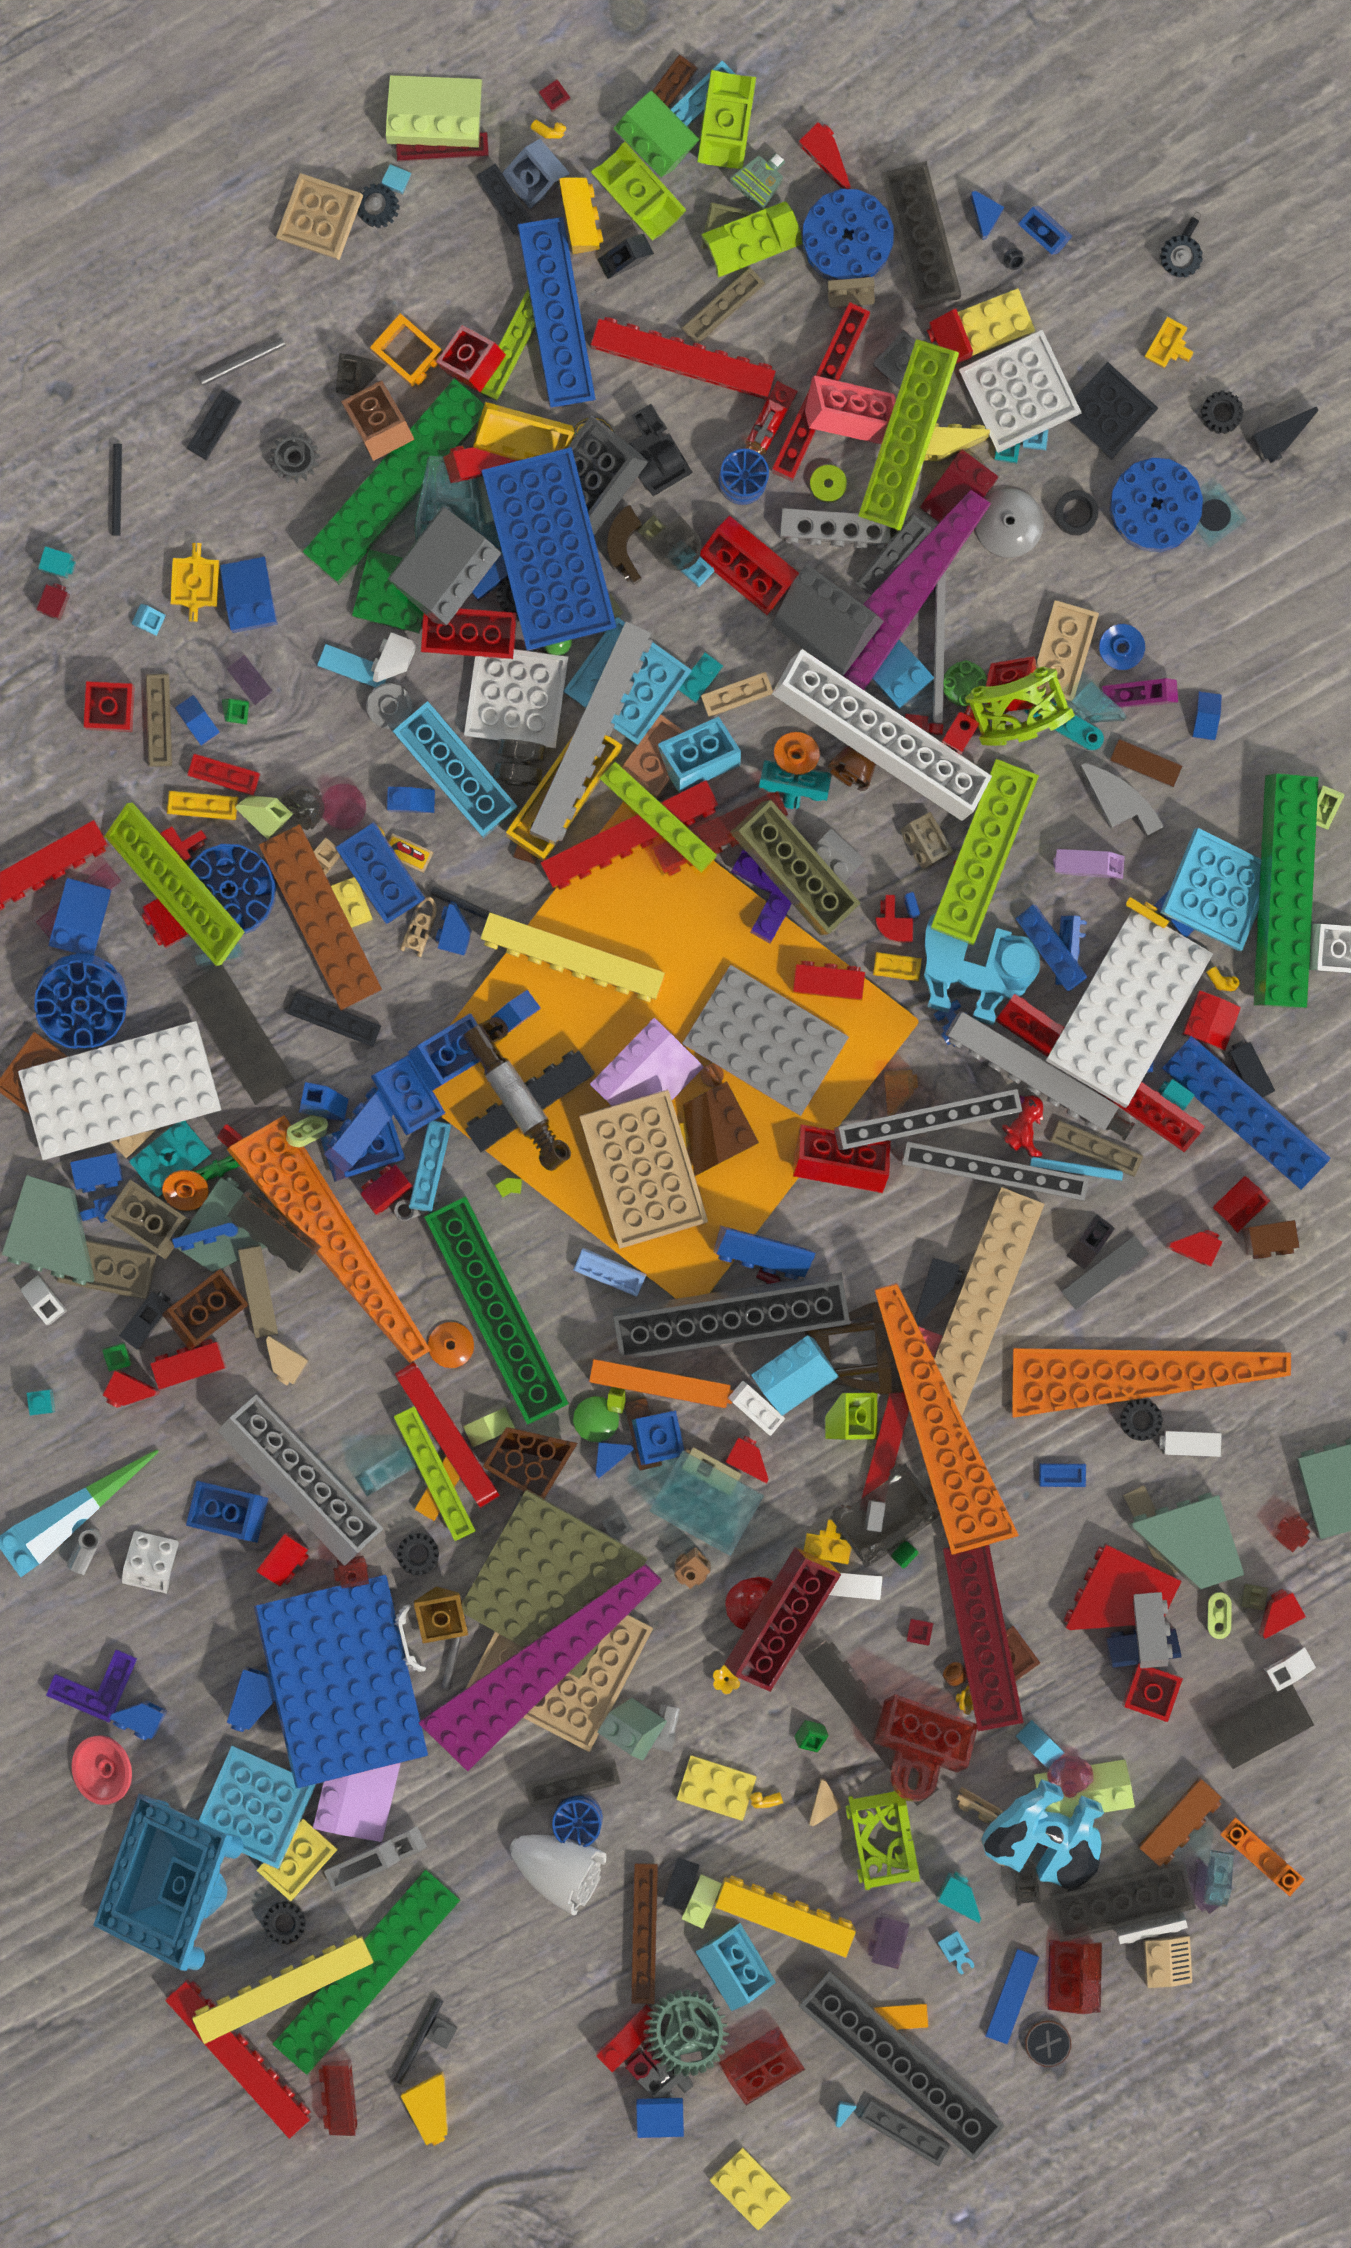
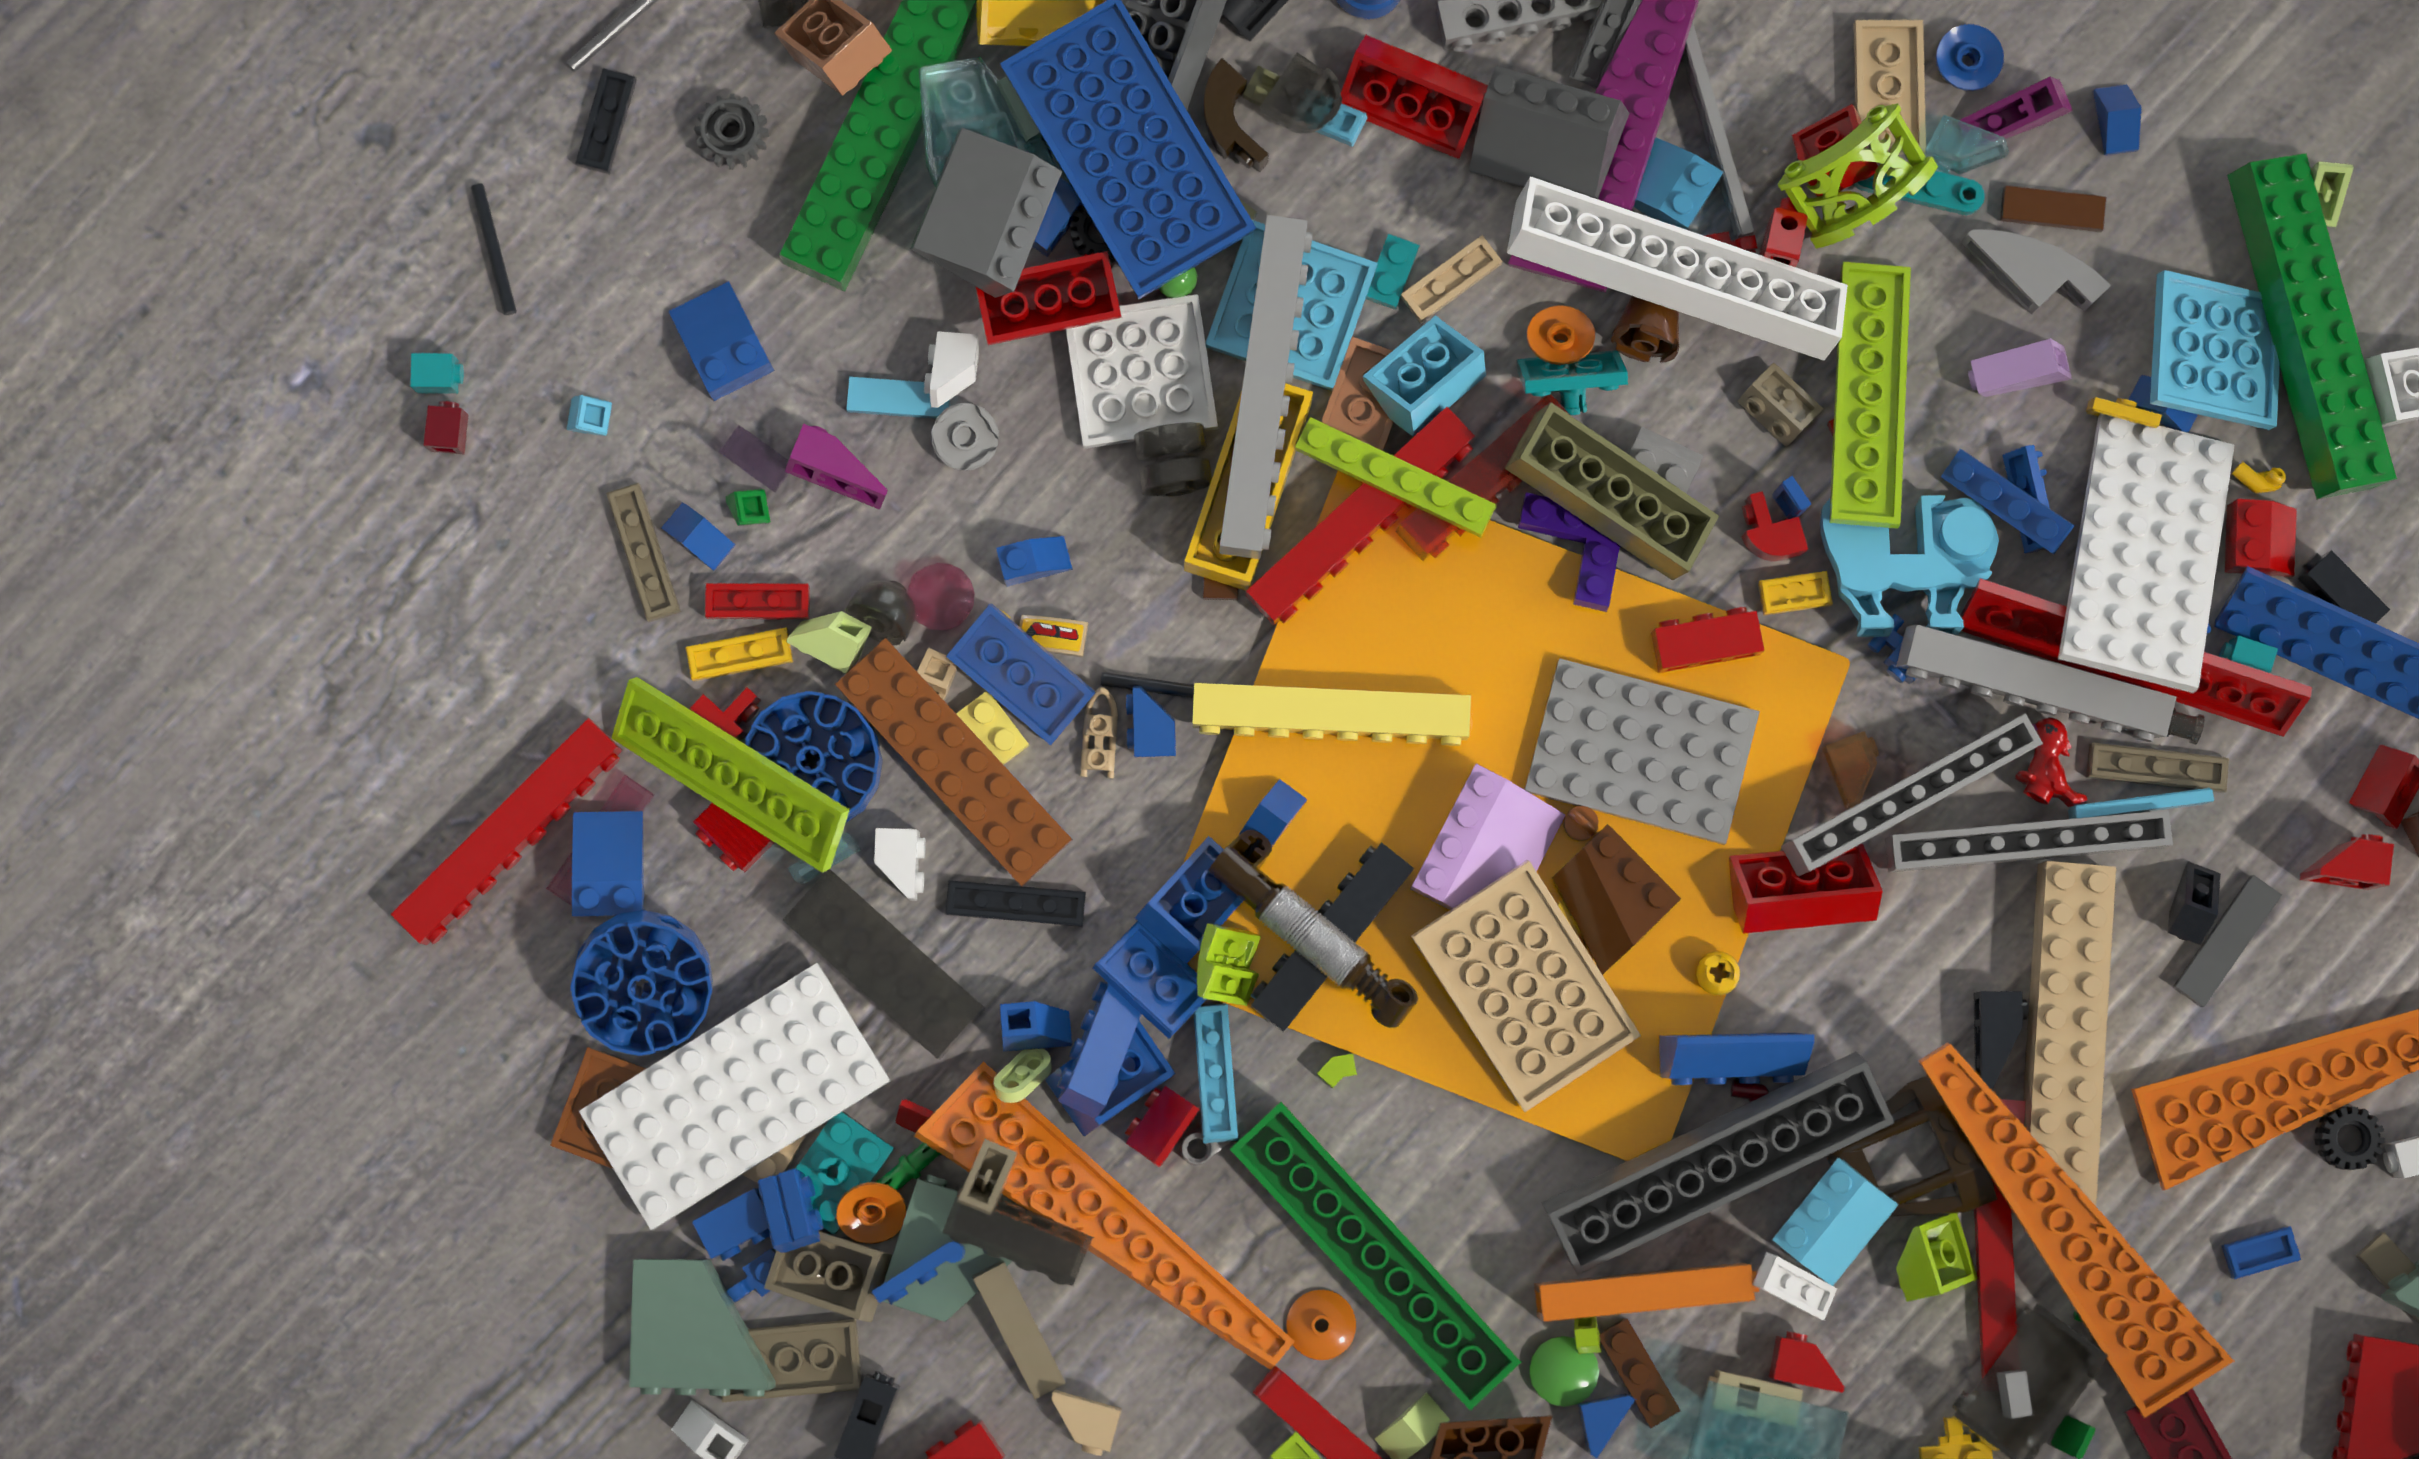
camera: 15 degrees left, 5 degrees down
(109, 706) = (565, 551): red brick -> none
(134, 1173) = (790, 1210): none -> blue brick
(194, 582) = (639, 344): yellow plate -> none
(205, 1309) = (949, 1380): reddish brown brick -> none
(265, 1189) = (987, 1177): none -> dark tan slope
(267, 969) = (898, 857): none -> white slope
(295, 698) = (828, 463): none -> magenta slope
(380, 600) = (914, 290): green plate -> none
(455, 769) = (1085, 497): medium azure brick -> none
(456, 1099) = (1225, 964): none -> lime slope
(468, 463) = (977, 62): red slope -> none
(609, 1272) = (1519, 1150): light blue plate -> none
(658, 1437) = (1664, 1372): blue tile -> none
(760, 1198) = (1729, 966): none -> yellow piece
(960, 681) = (1761, 169): bright green dish -> none

